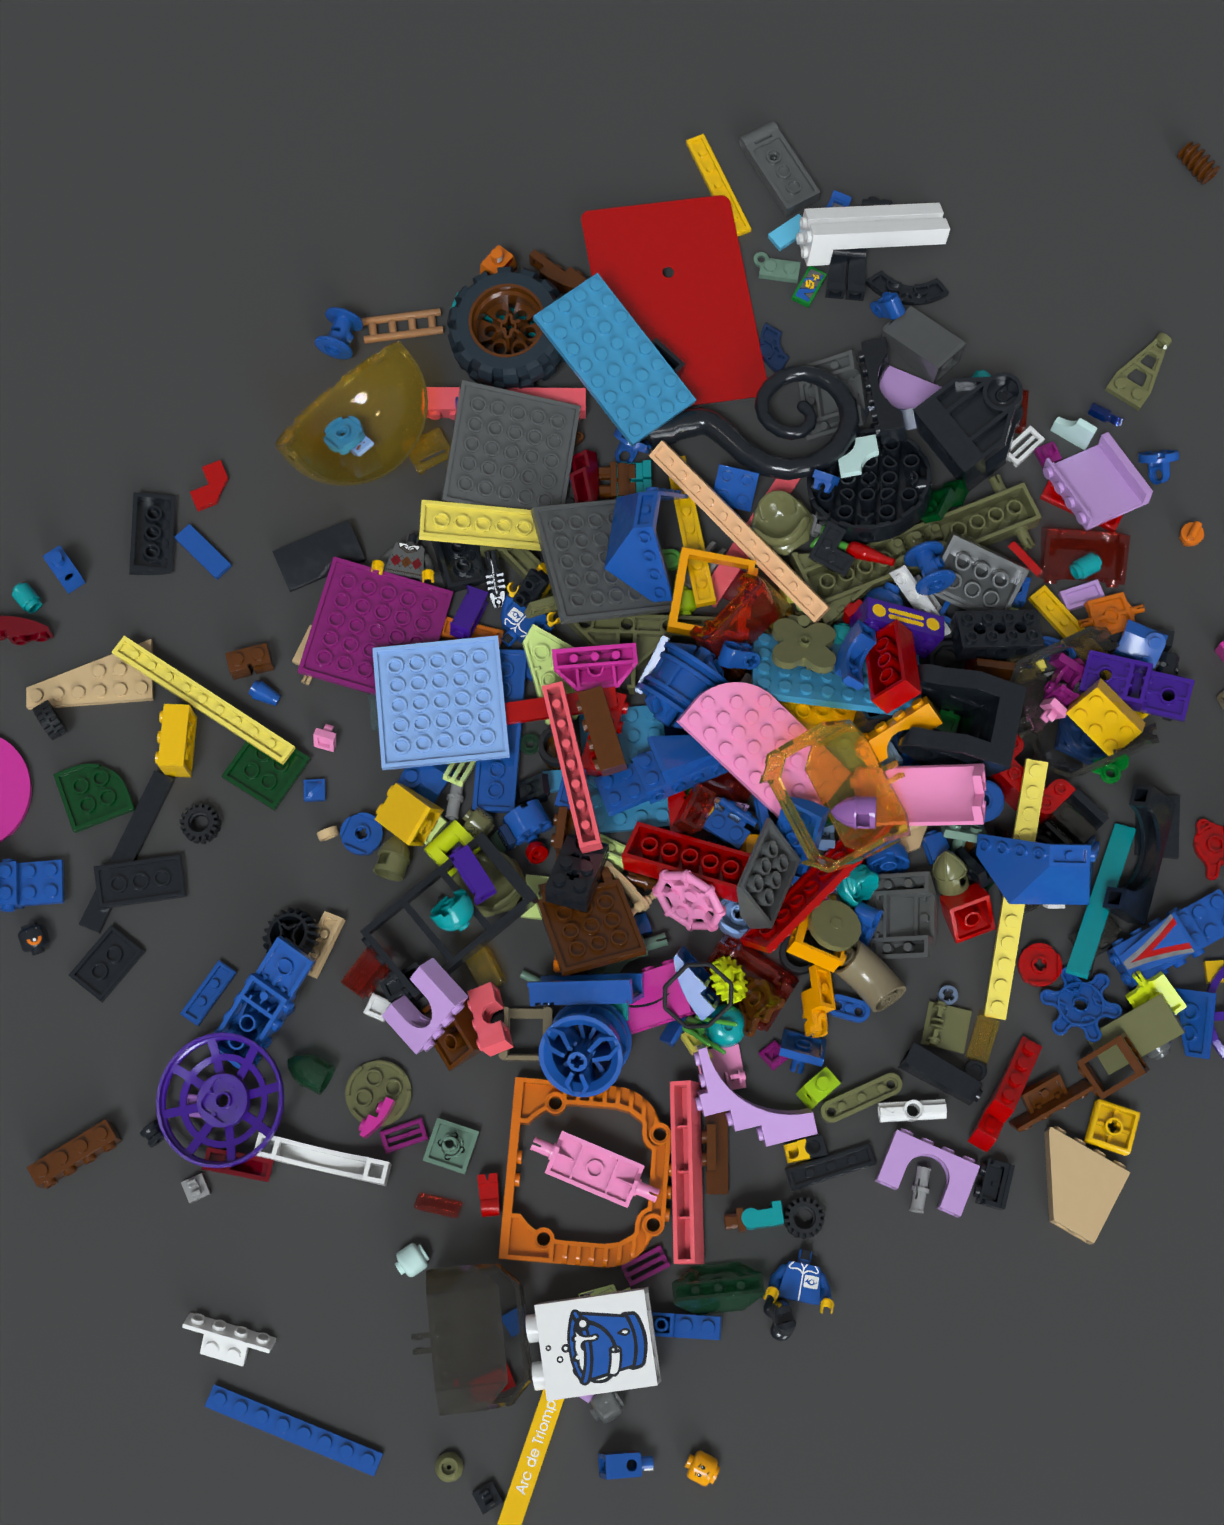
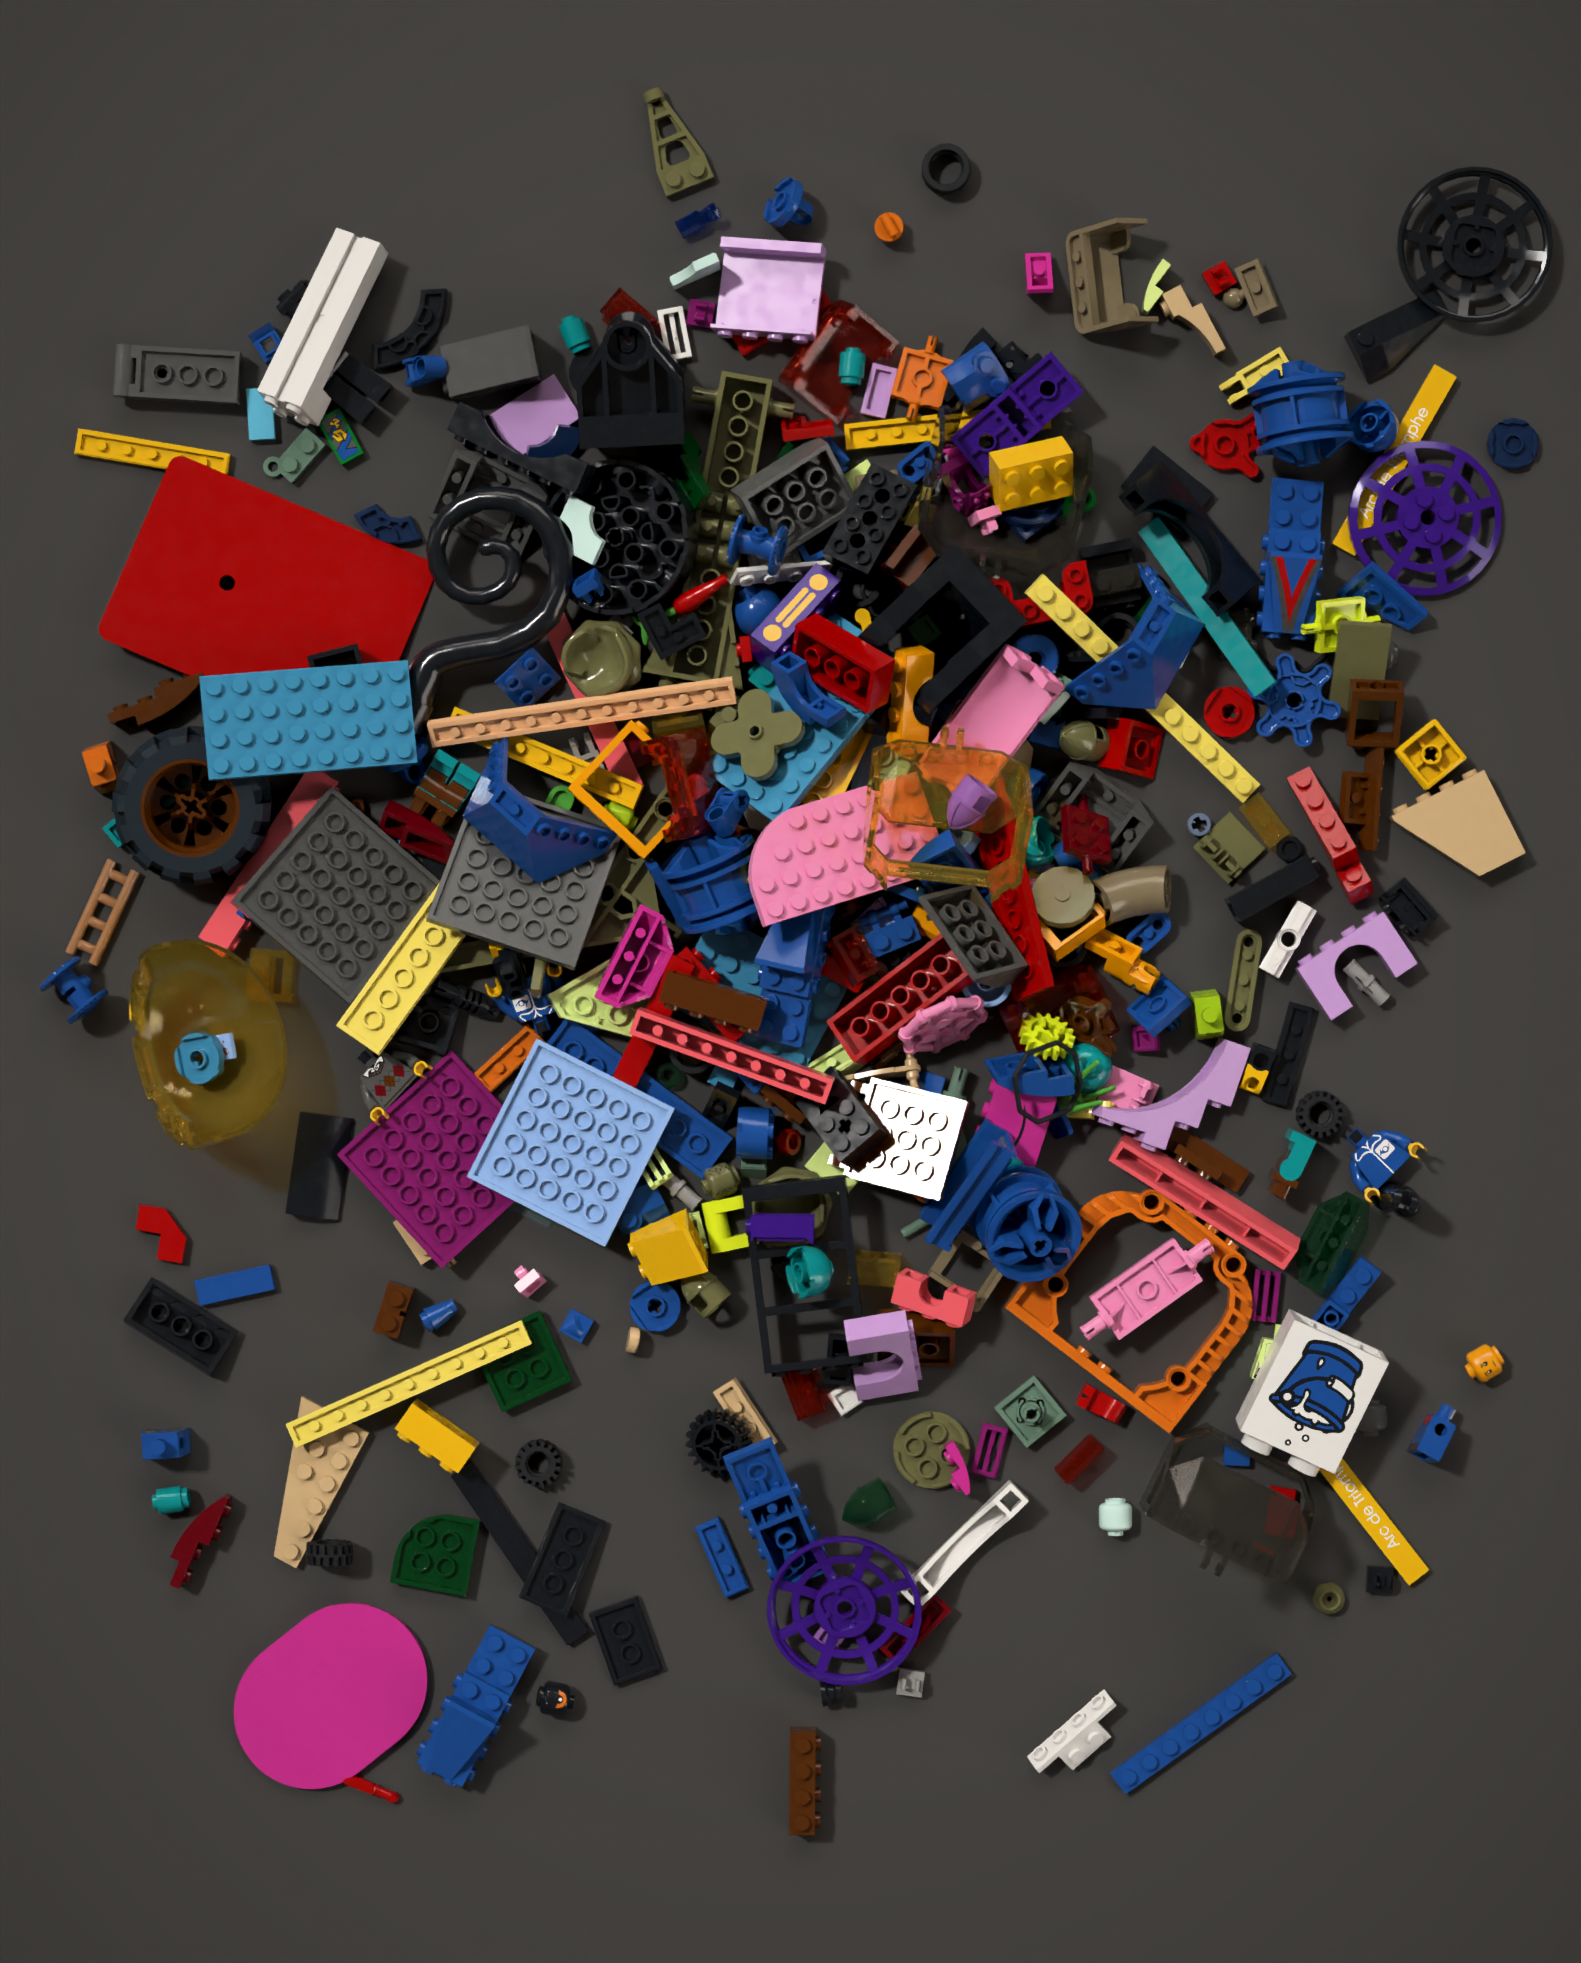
camera: 55 degrees left, 15 degrees up
(469, 613) = (489, 1050): dark purple window -> none
(506, 837) = (756, 1163): dark blue tile -> none
(887, 916) = (1085, 835): none -> dark red plate

